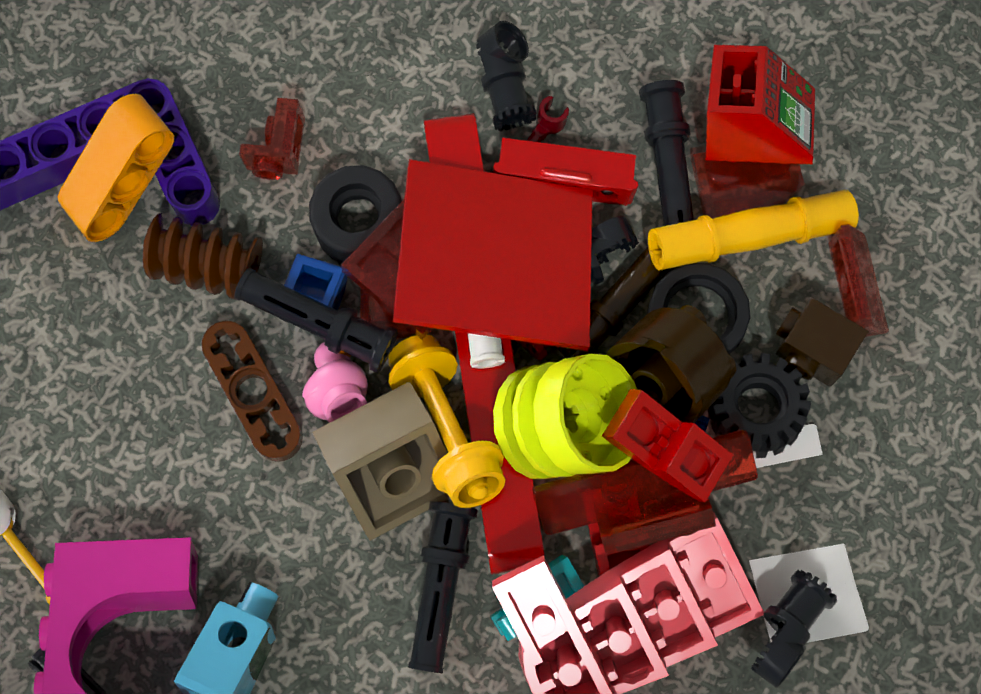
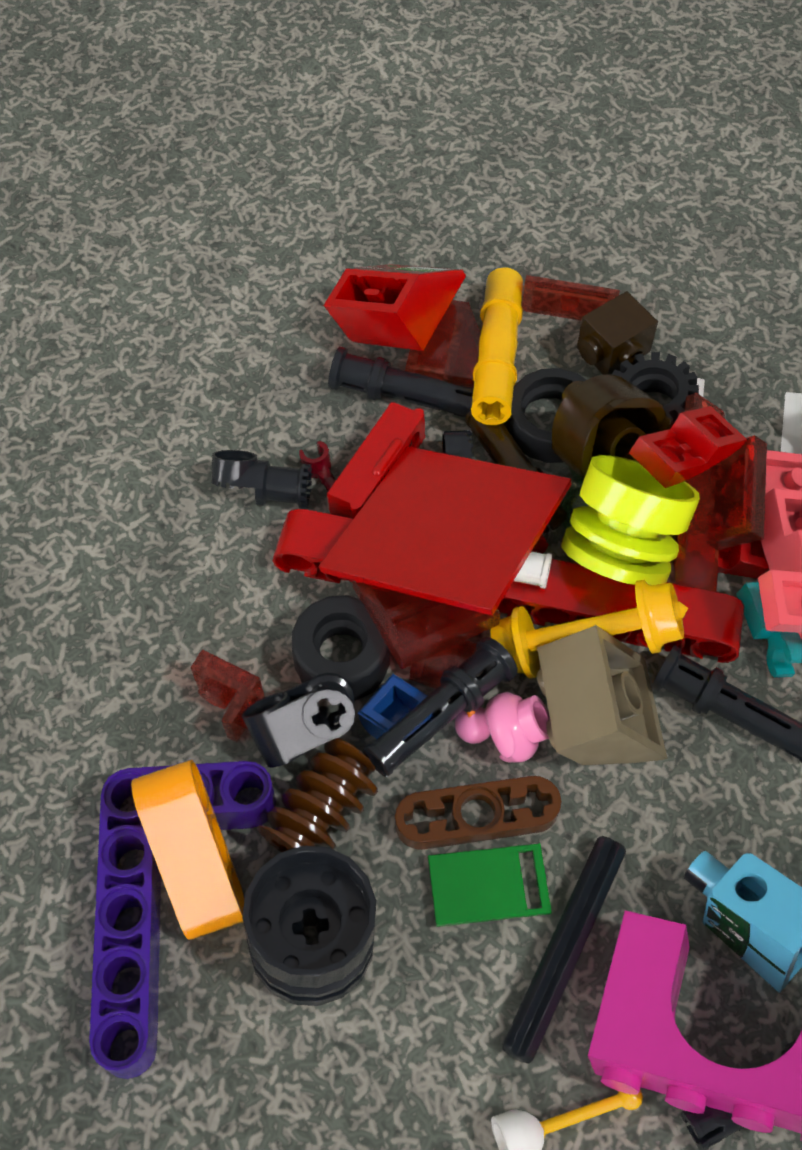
camera: 70 degrees left, 15 degrees down
(69, 264) = (301, 891): none -> black wheel
(161, 504) = (563, 950): none -> black axle
(191, 421) = (484, 885): none -> green piece
(266, 206) = (293, 722): none -> piece

